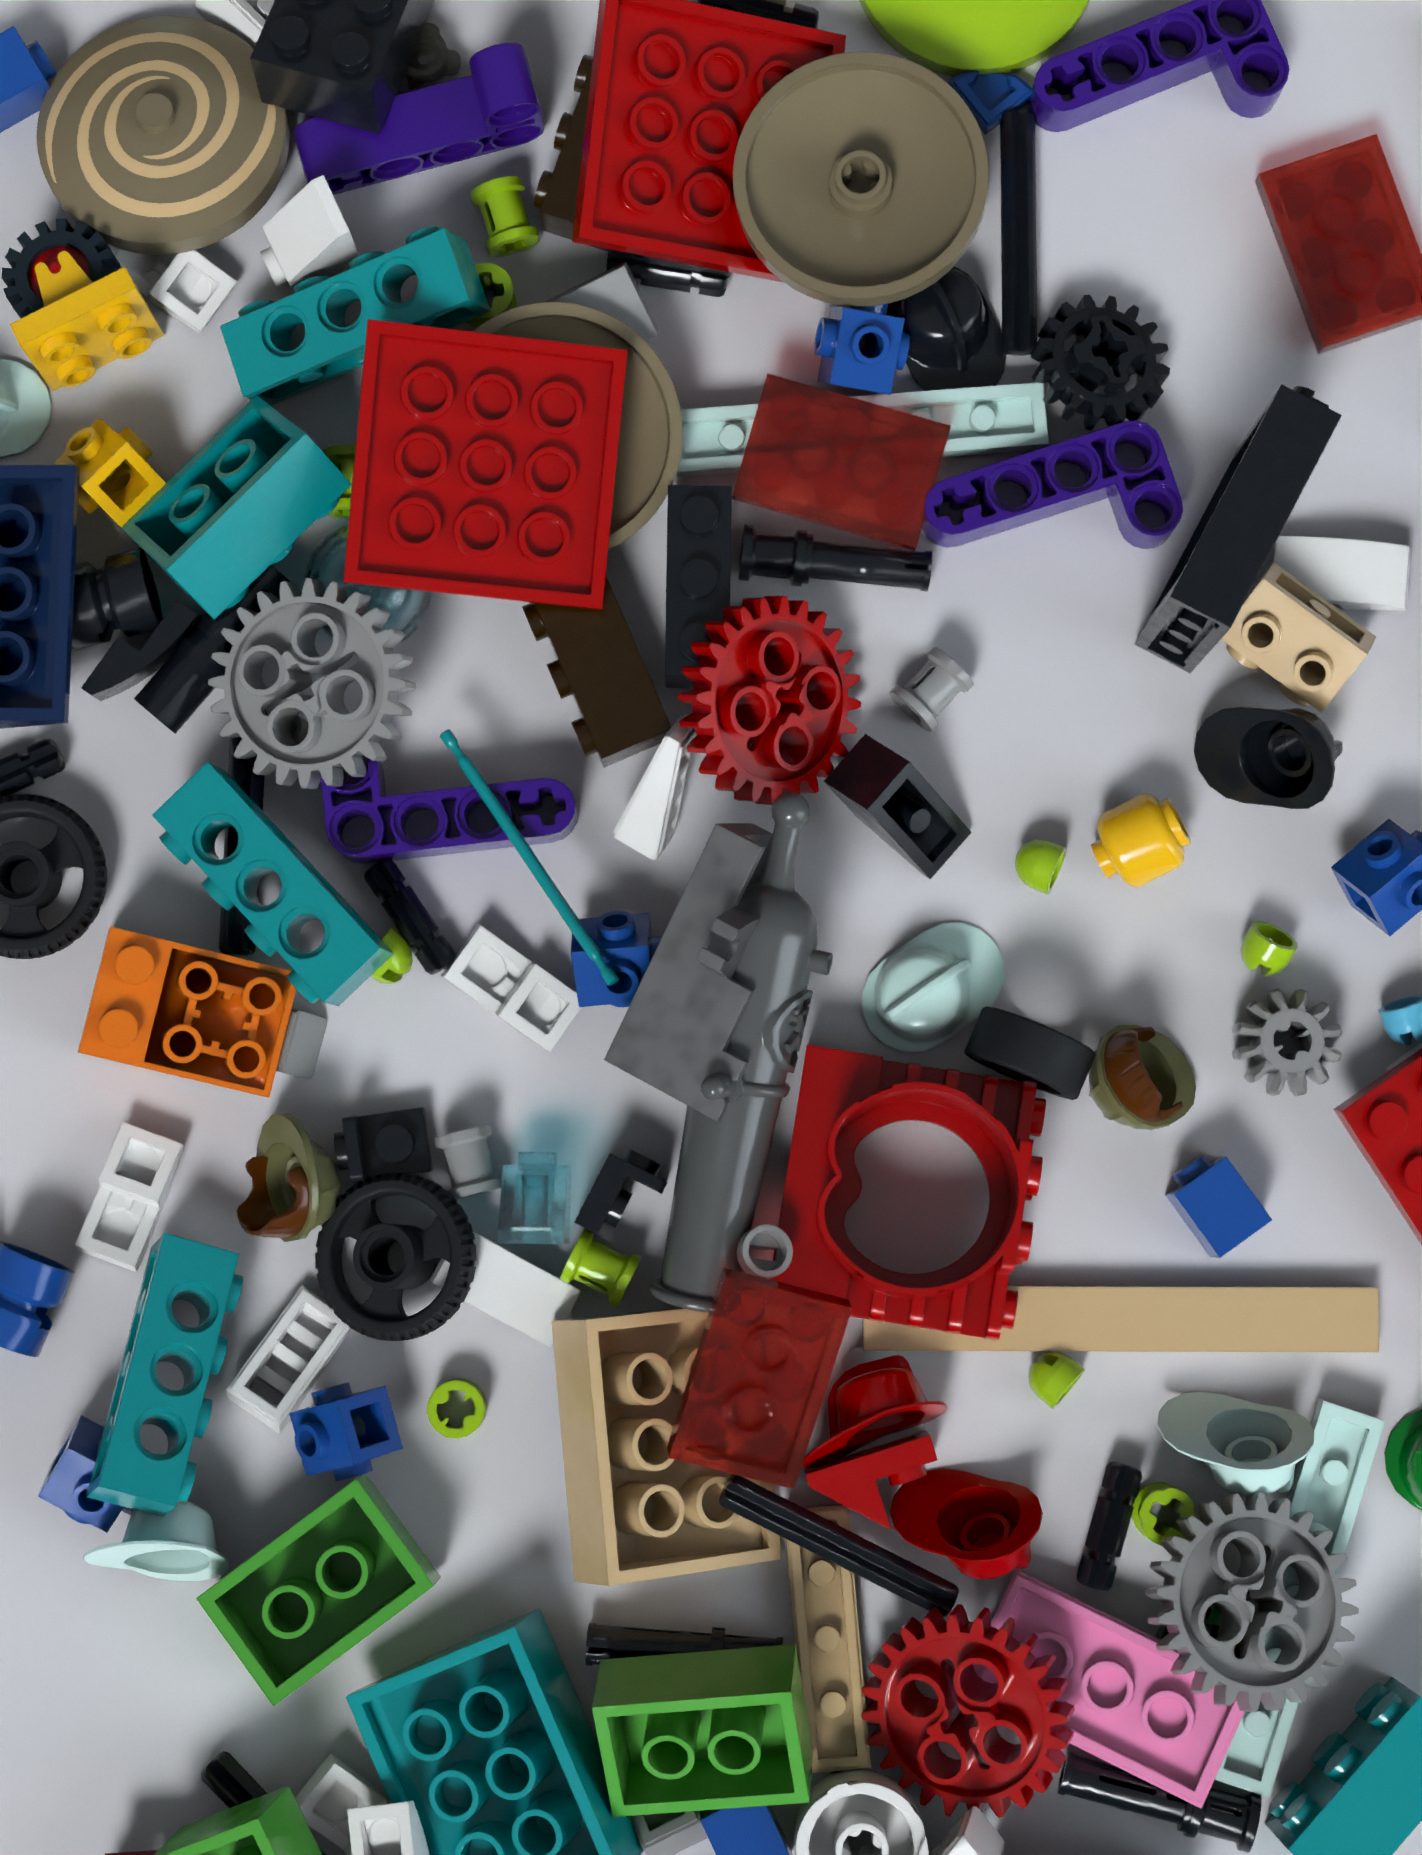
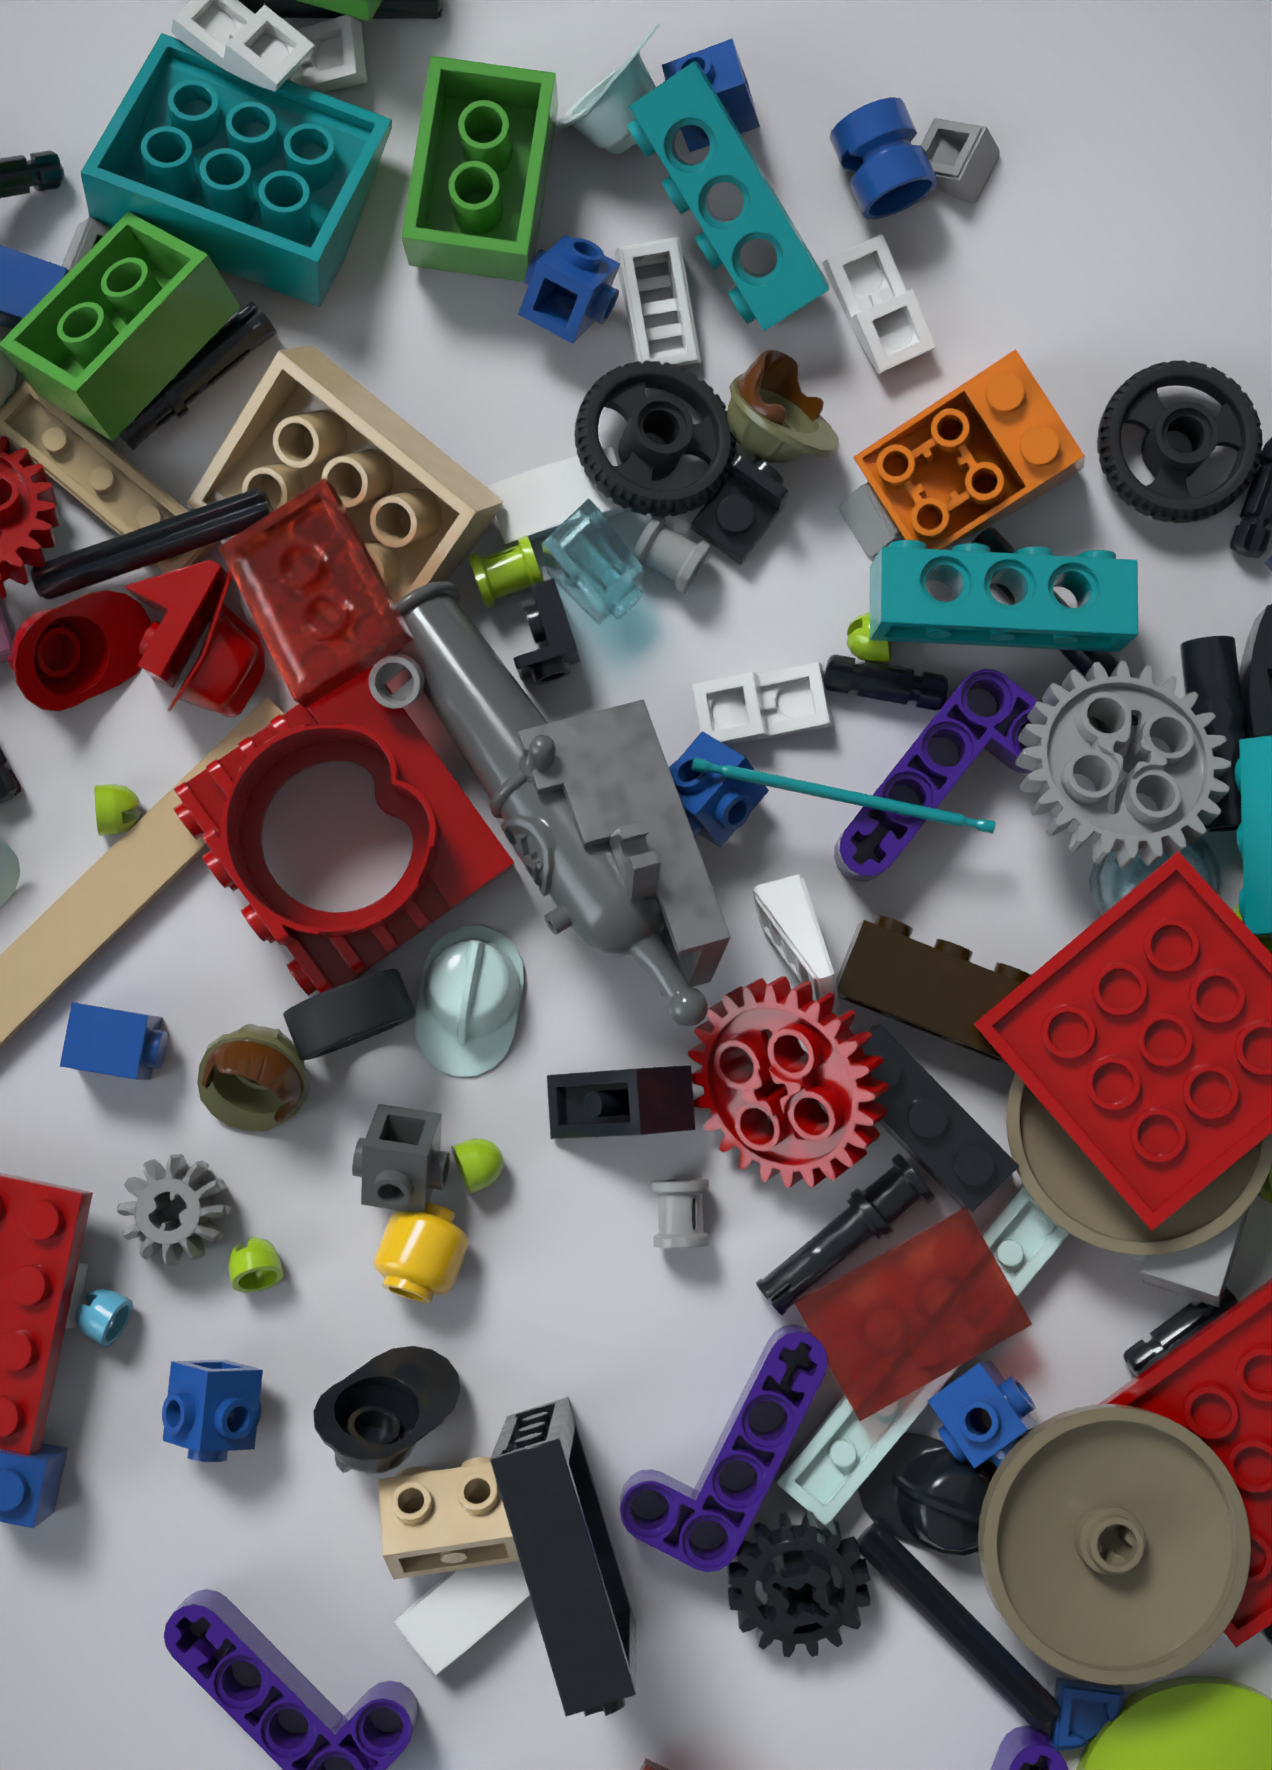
camera: 135 degrees right, 0 degrees up
(471, 1421) = (510, 363): lime bush -> none
(1092, 916) = (397, 1172): none -> dark grey brick

